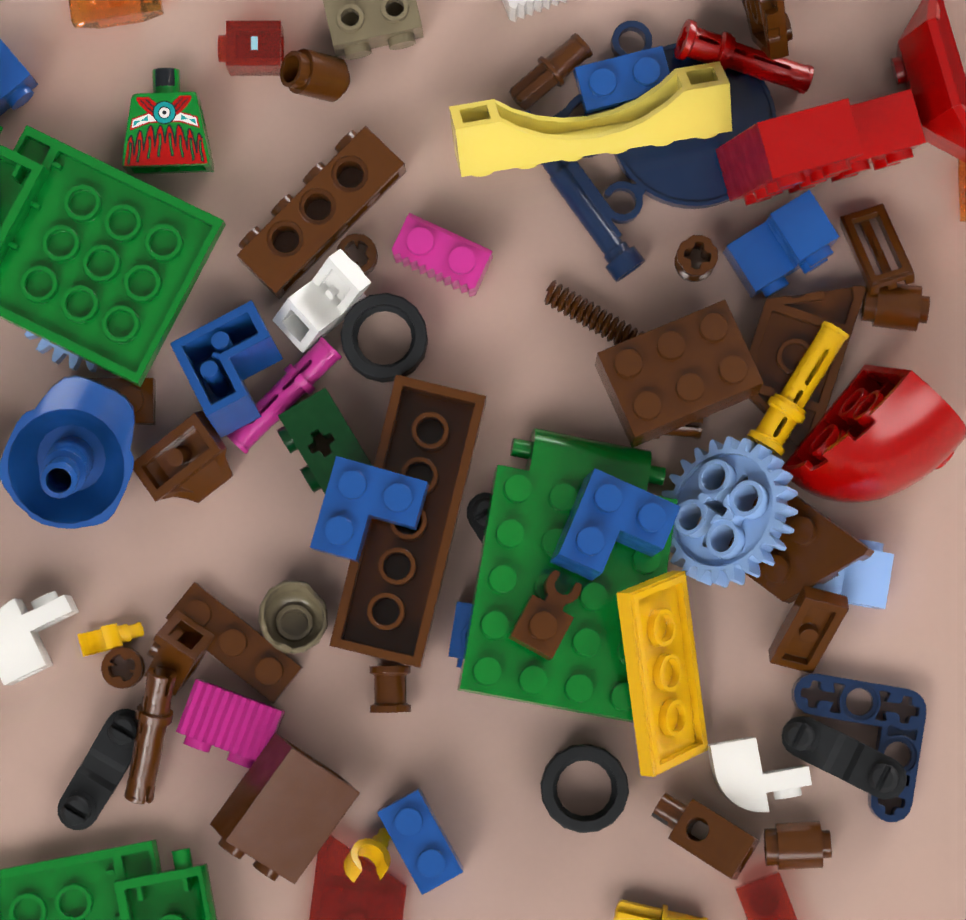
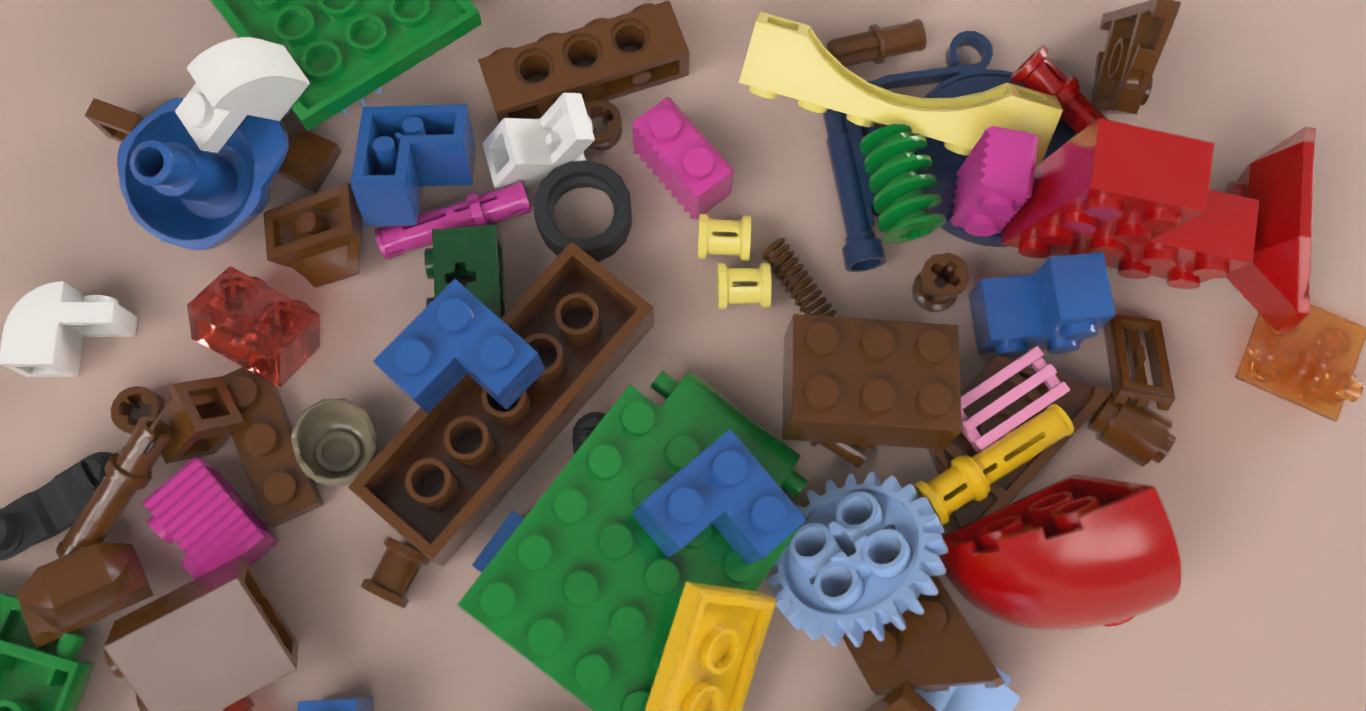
camera: 20 degrees right, 10 degrees down
(79, 385) = (238, 81): none -> white brick
(108, 637) = (139, 372): yellow piece -> none
(169, 816) = (81, 590): none -> reddish brown slope
(178, 568) = (254, 325): none -> clear red brick
(494, 300) = (724, 237): none -> light yellow bush
(543, 621) = (589, 576): reddish brown plate -> none
(557, 337) = (759, 293): none -> light yellow bush
(620, 79) = (942, 73): blue plate -> none
(630, 197) = (898, 184): none -> green piece
(702, 165) = (994, 181): none -> dark pink brick
(808, 298) = (1044, 373): none -> bright pink tile

